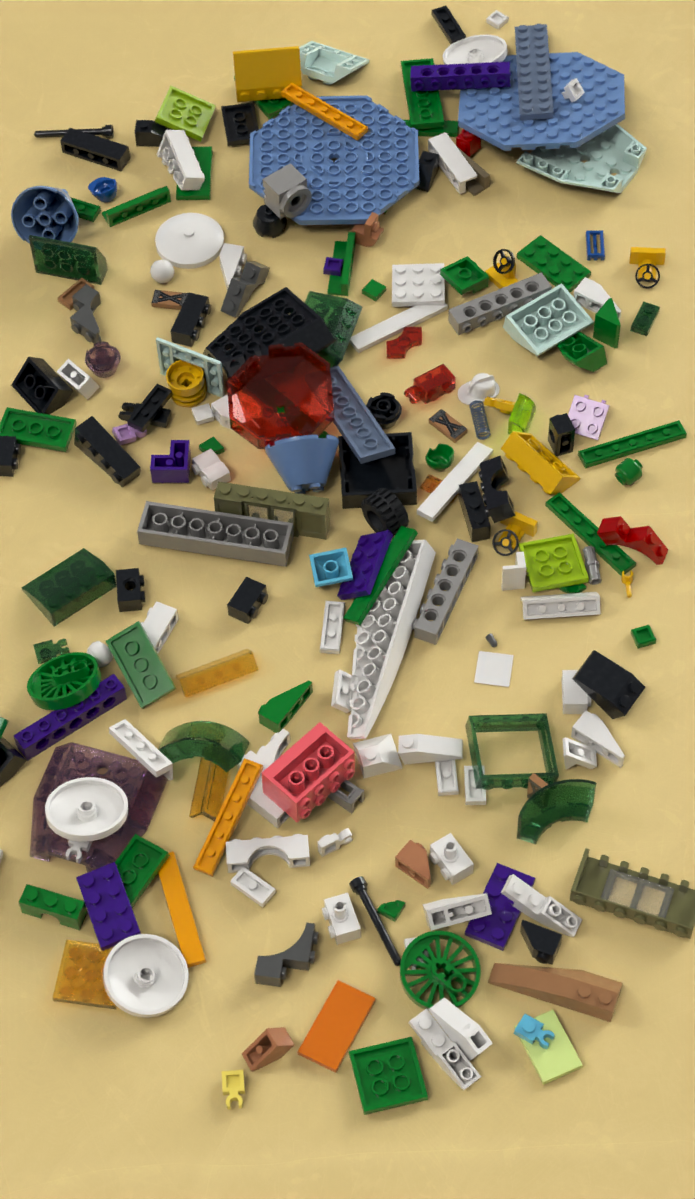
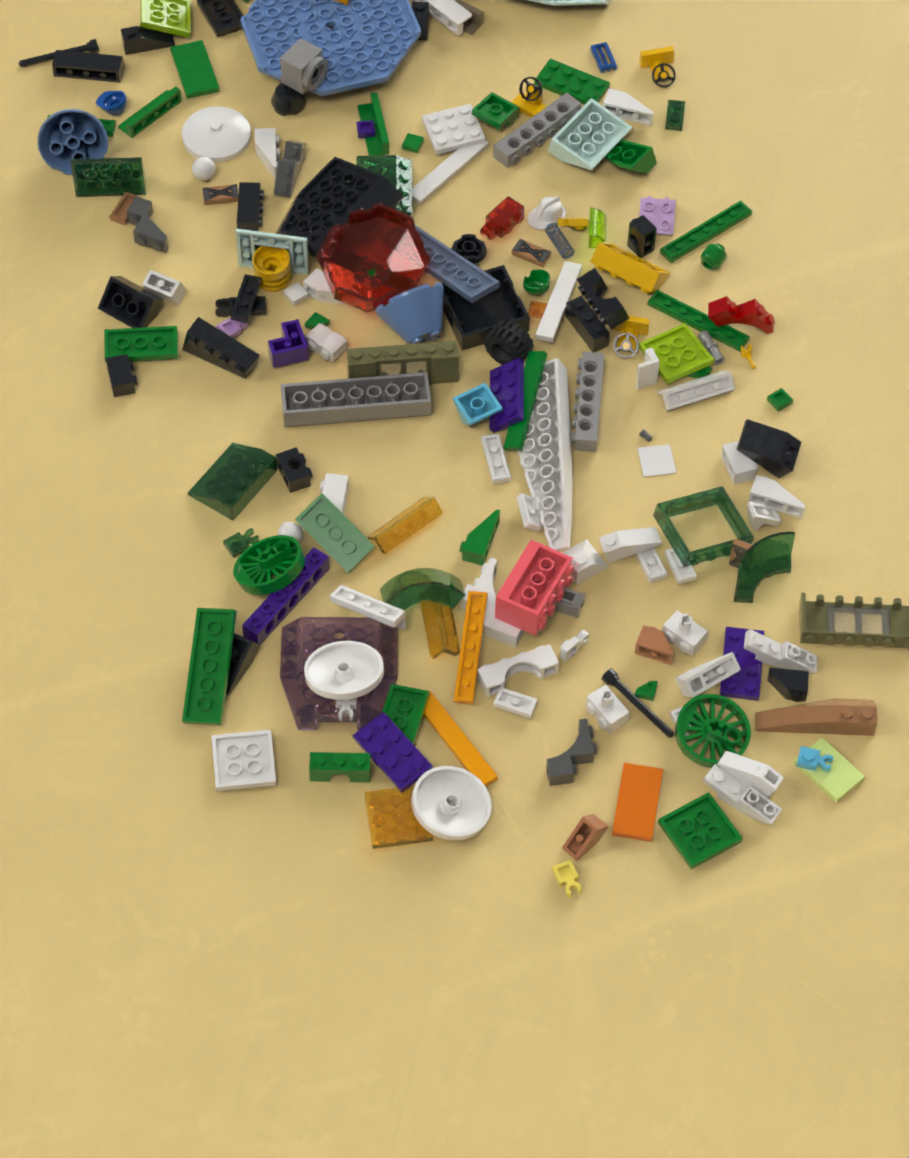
camera: 20 degrees left, 0 degrees up
(102, 359) = (181, 263): cone -> none
(181, 160) = (179, 58): white wedge -> none
(247, 600) = (408, 453): black brick -> none
(368, 233) = (388, 91): nougat brick -> none
(409, 338) = (464, 180): clear red tile -> none
(607, 325) = (647, 127): green slope -> none

